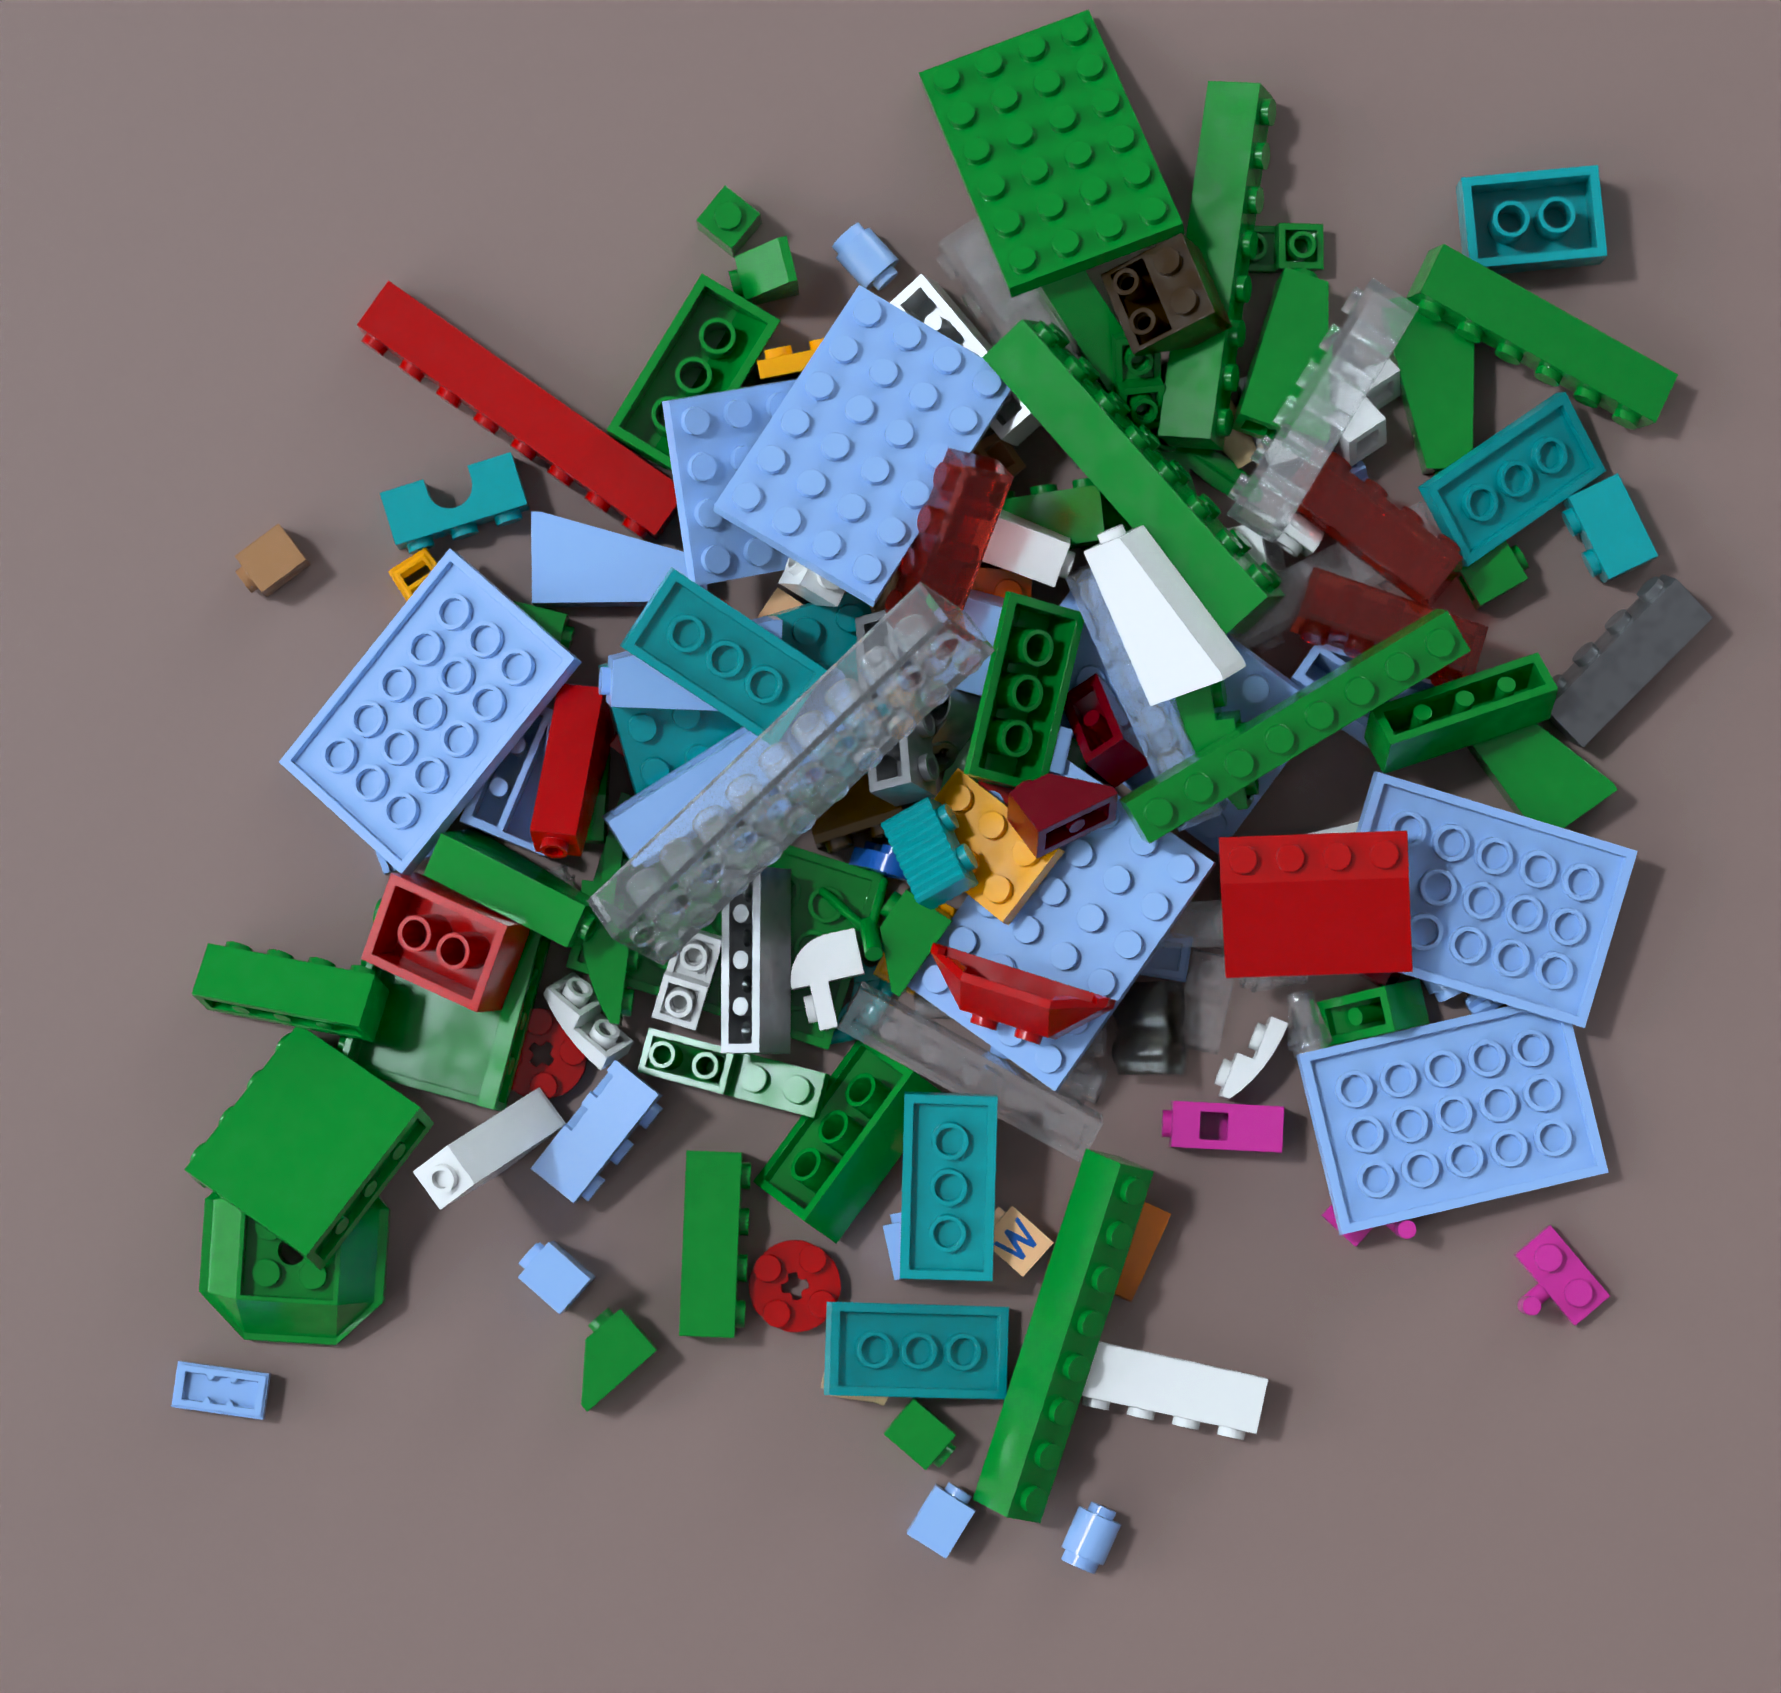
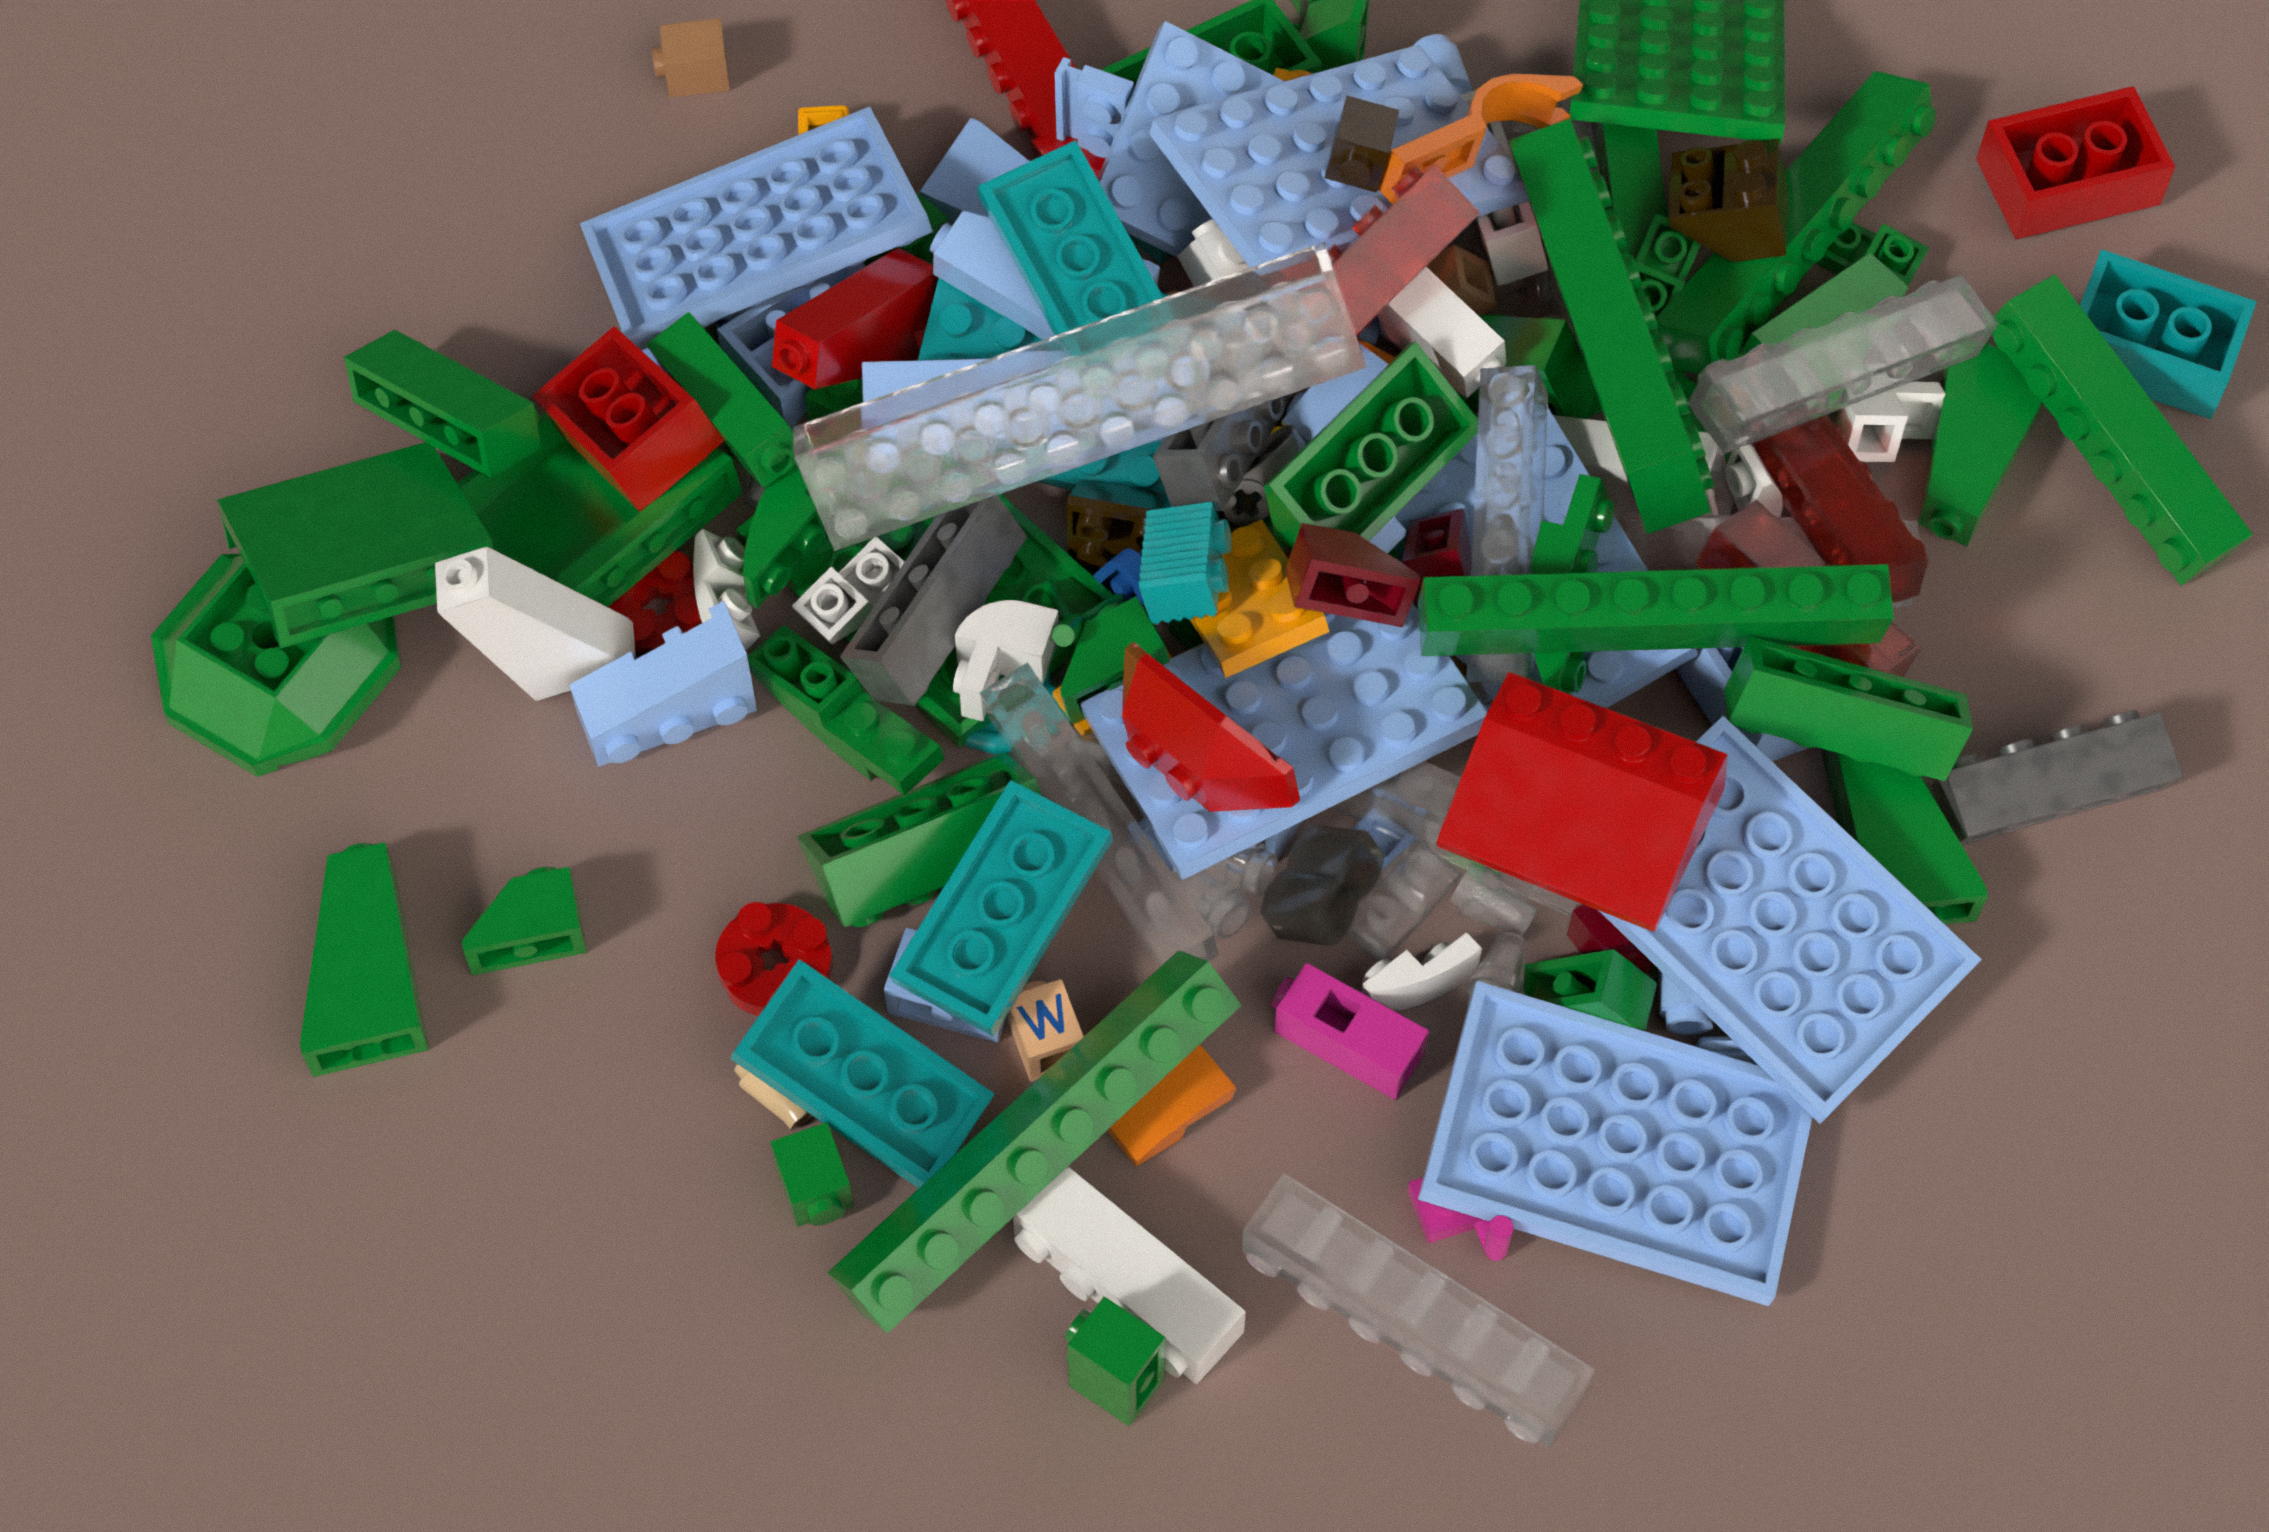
camera: 25 degrees right, 25 degrees down
(221, 1390) = (105, 750): light blue plate -> none
(494, 496) = (931, 105): teal arch -> none
(518, 1453) = (362, 971): none -> green slope
(554, 1275) = (523, 800): light blue brick -> none
(645, 479) = (1089, 105): none -> light blue plate
(712, 1244) = (711, 866): green brick -> none
(886, 448) = (1361, 144): none -> dark brown brick
(942, 1518) = (779, 1279): light blue brick -> none
(987, 307) = (1503, 98): none -> orange piece
(1090, 1537) = (936, 1390): light blue brick -> none
(1159, 616) = (1561, 433): white slope -> none
(1200, 1461) = (1114, 1359): none -> green brick
(1375, 1308) = (1416, 1311): none -> clear brick
(1400, 86) = (2075, 162): none -> red brick
(1493, 574) = (1950, 634): green brick -> none
(1512, 478) = (2019, 544): teal plate -> none
(1558, 1277) = (1653, 1394): dark pink plate -> none
(1609, 529) = (2102, 653): teal brick -> none

